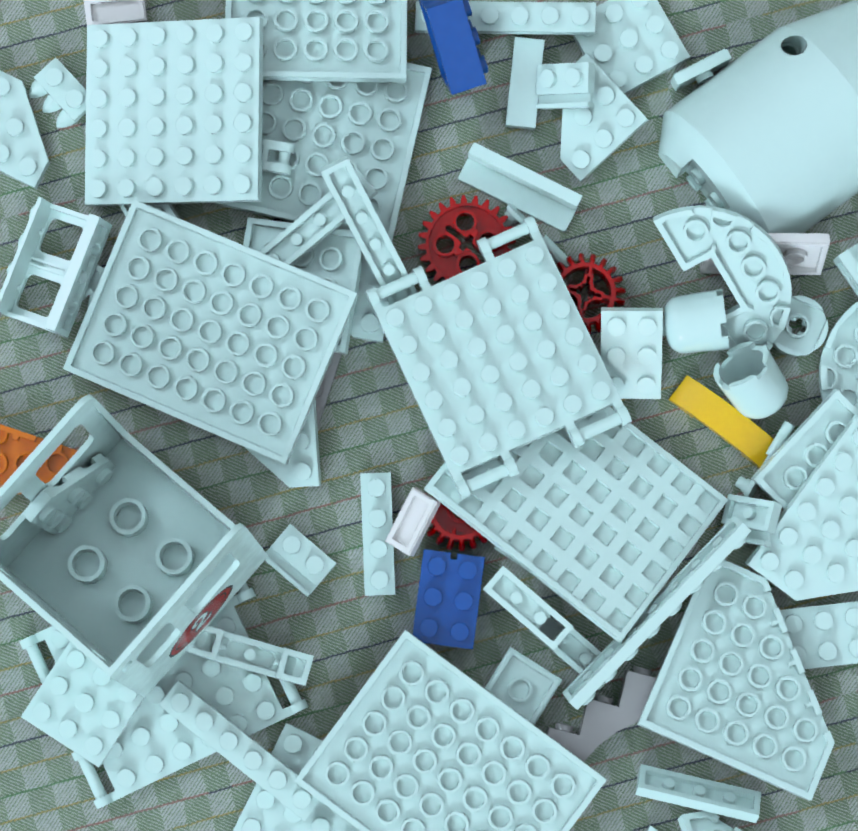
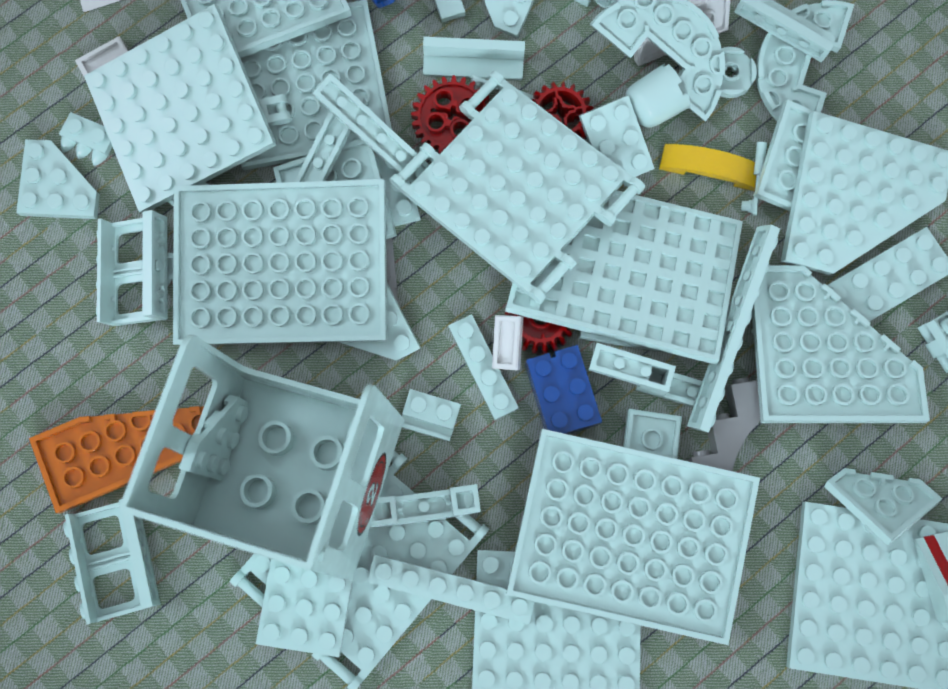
camera: 25 degrees left, 5 degrees down
(698, 793) = (831, 458): light aqua plate -> none
(752, 380) = (720, 120): light aqua cylinder -> none
(757, 514) = (777, 215): light aqua plate -> none

